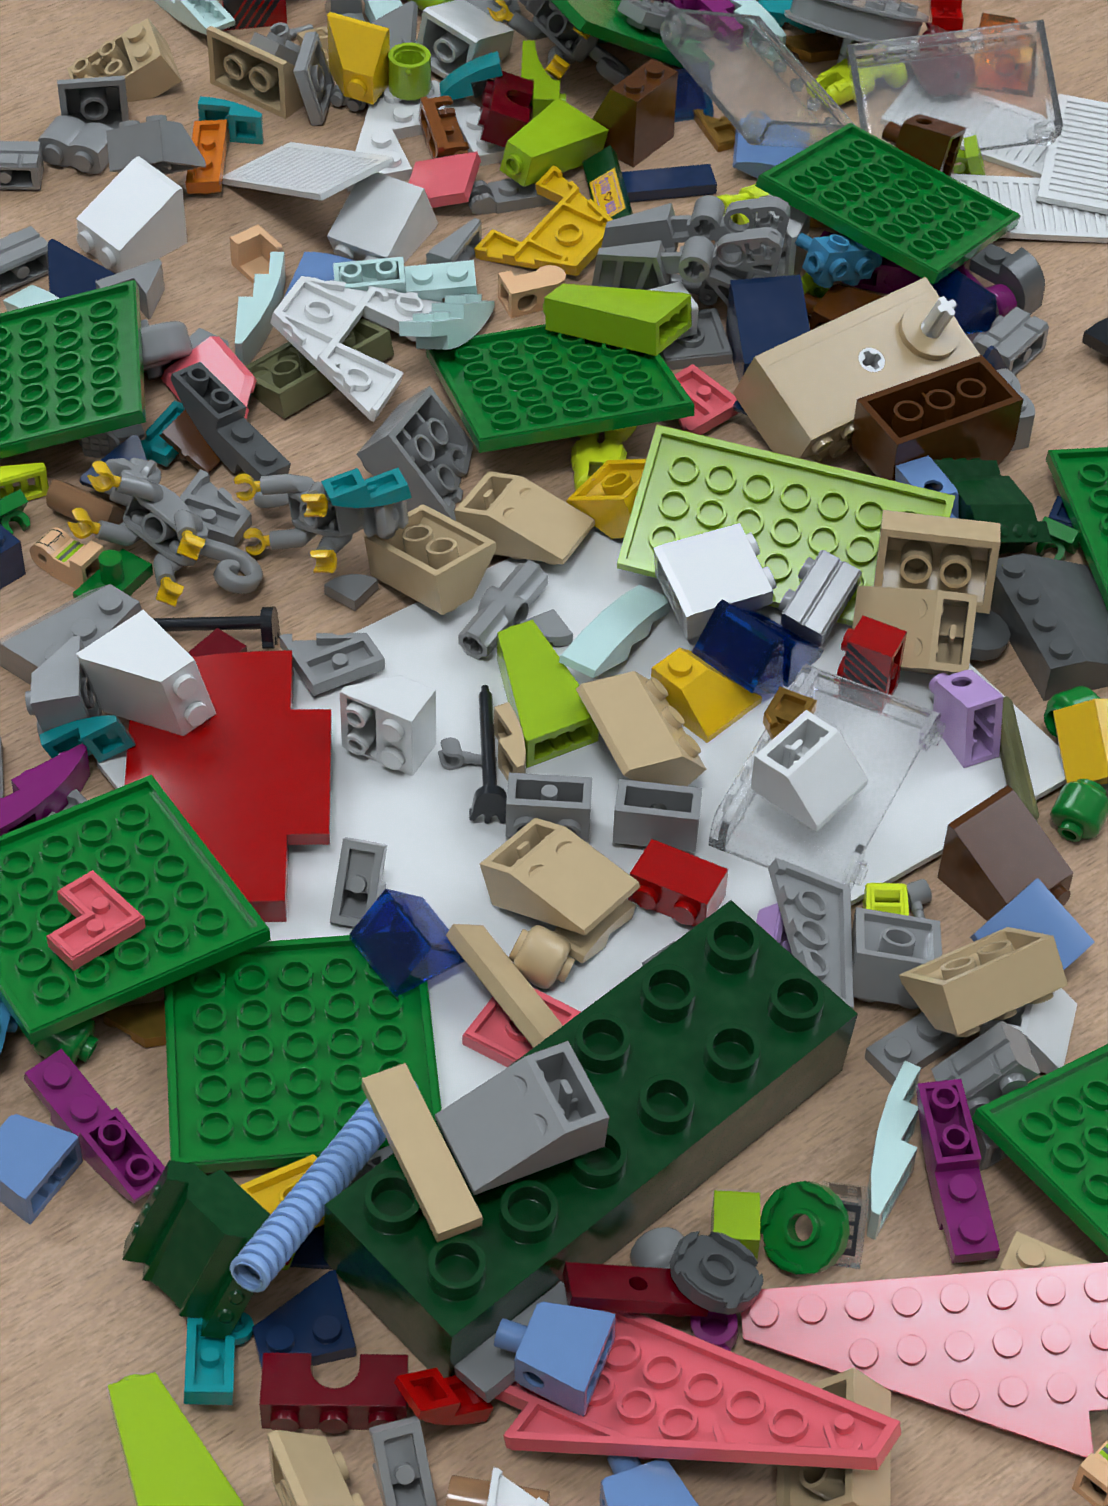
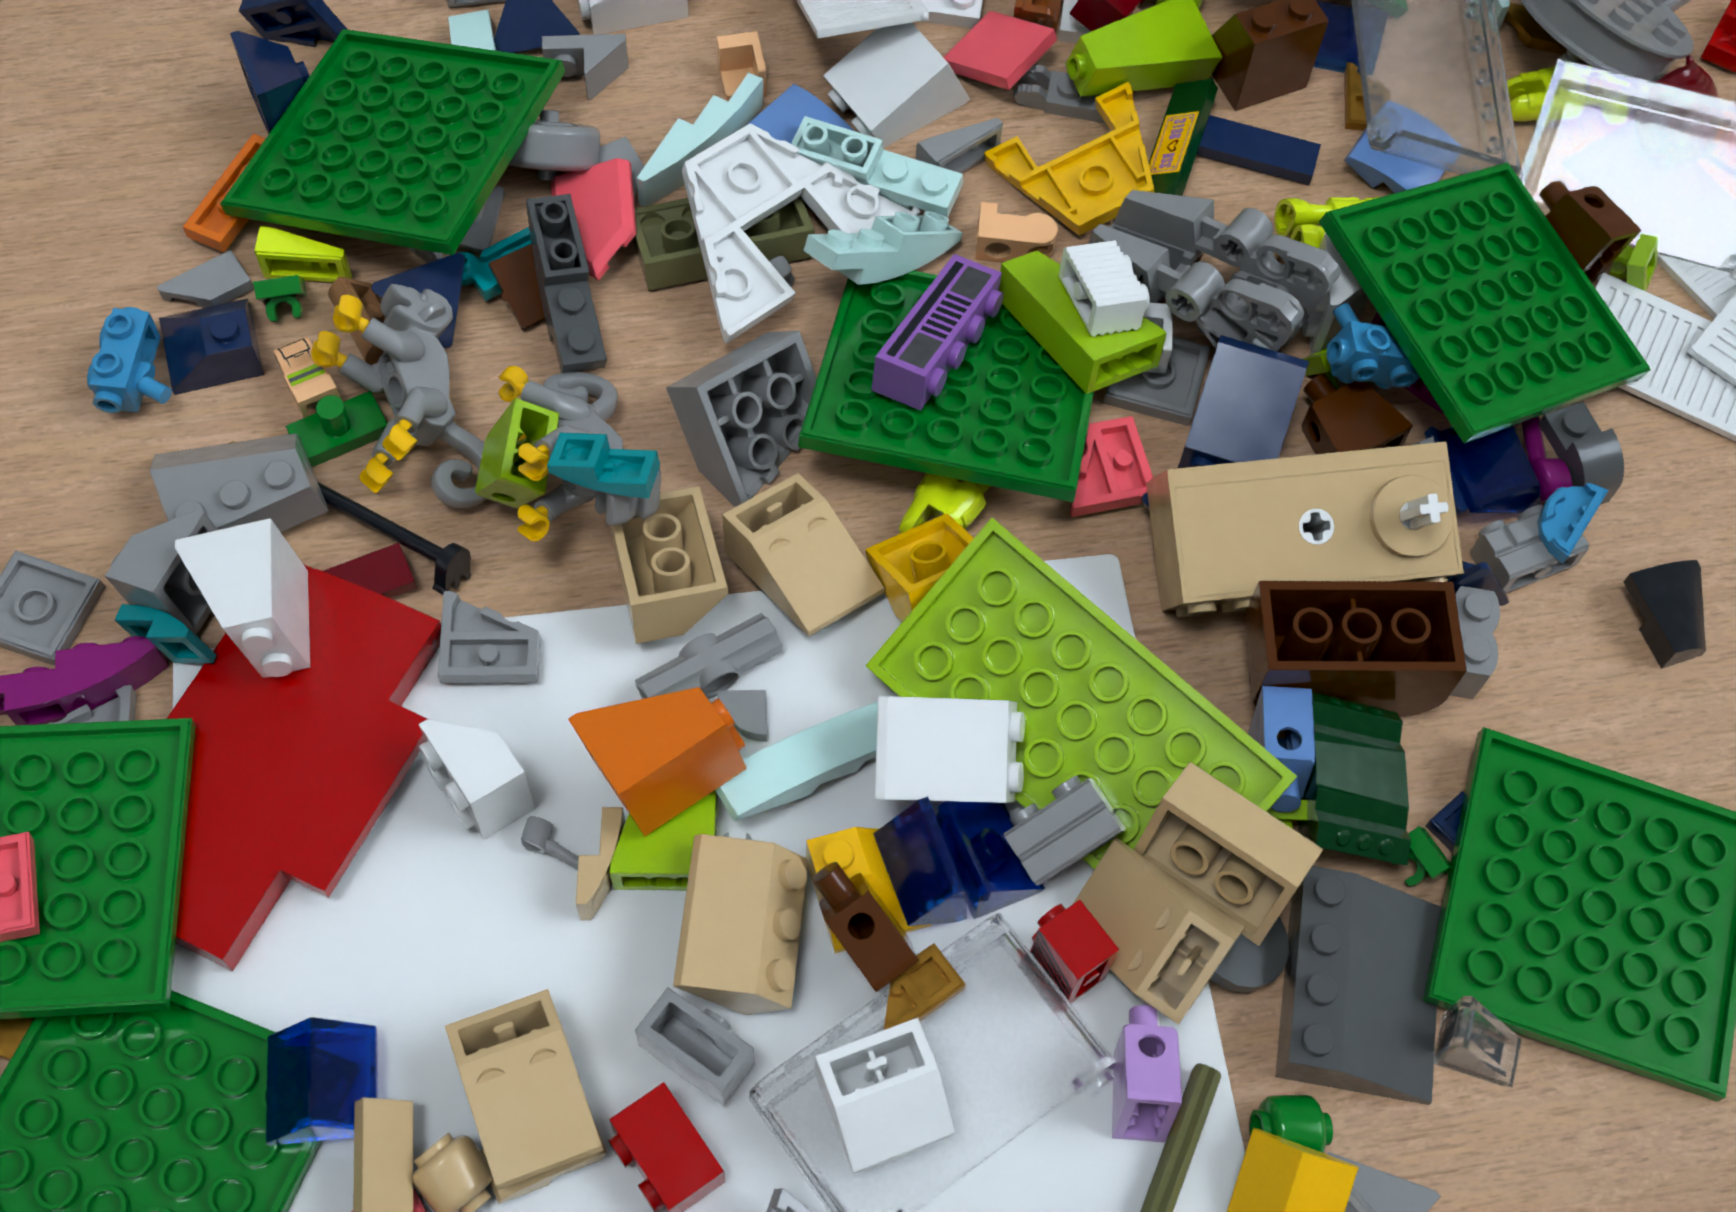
camera: 25 degrees right, 15 degrees up
(219, 512) = (476, 379): light grey wing -> none
(279, 530) = (499, 464): none -> lime torso
(351, 589) = (578, 552): light grey tile -> none
(357, 880) = (319, 972): light grey slope -> none
(489, 798) = (530, 925): black piece -> none
(521, 643) = (662, 752): none -> orange slope
(530, 352) = (937, 332): none -> medium lavender brick
(549, 798) = (581, 974): light grey brick -> none
(631, 279) = (1104, 287): none -> white brick
(727, 695) = (864, 926): none -> reddish brown torso
(1024, 311) = (1567, 516): none -> dark azure tile

